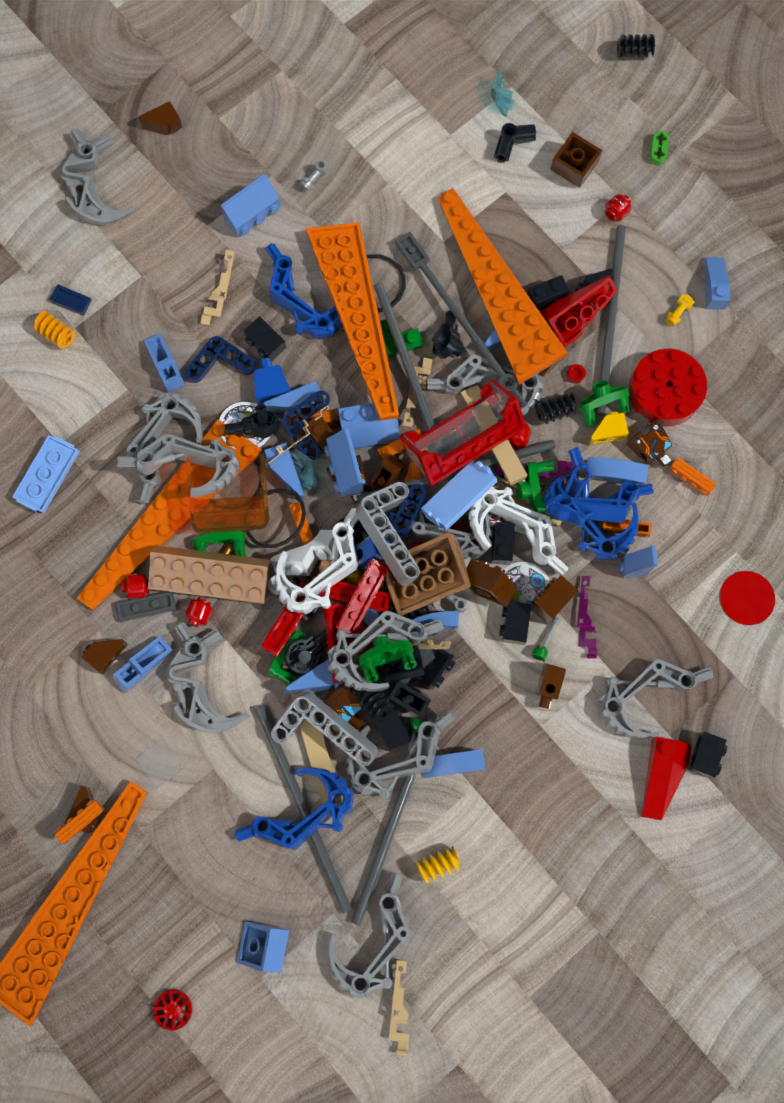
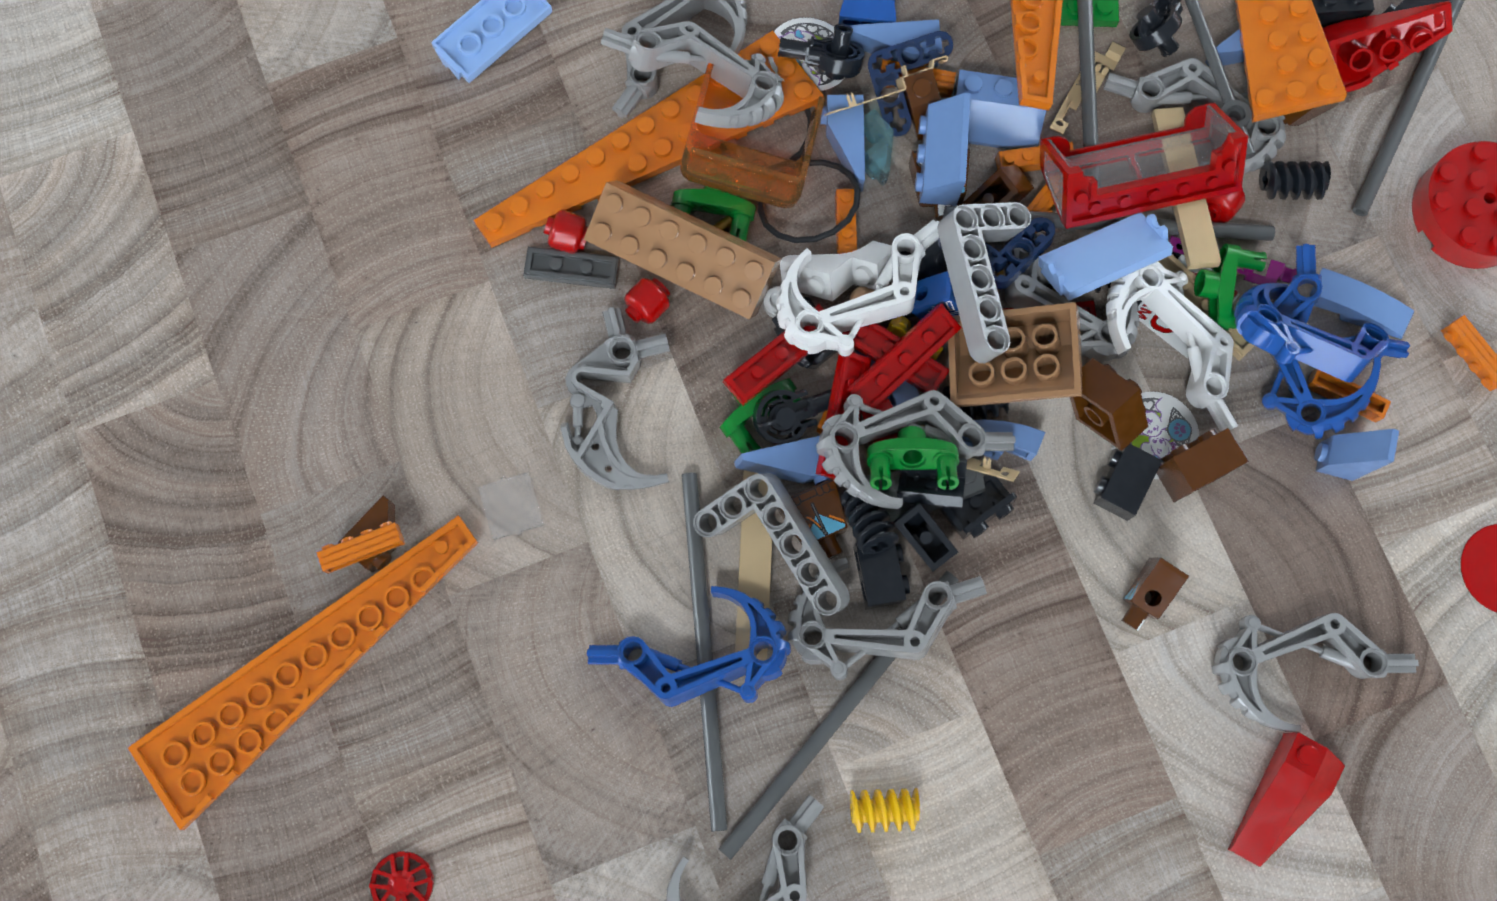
camera: 20 degrees right, 0 degrees up
(103, 653) = (485, 313): reddish brown slope -> none
(141, 664) = (535, 349): medium blue slope -> none
(263, 947) = (571, 838): medium blue slope -> none
(414, 727) = (917, 584): green hinge -> none
(457, 763) = (965, 664): medium blue slope -> none
(459, 604) = (1046, 422): light grey bar -> none
(503, 543) = (1148, 353): black brick -> none
(541, 652) = (1151, 539): hinge -> none
(576, 373) = (1340, 140): red tile -> none
(587, 622) = (1239, 523): magenta piece -> none
(603, 395) = (1376, 181): green connector -> none
(610, 429) = (1371, 240): yellow slope -> none
(651, 444) = (1428, 282): reddish brown torso -> none
(708, 755) = (1368, 790): black brick -> none

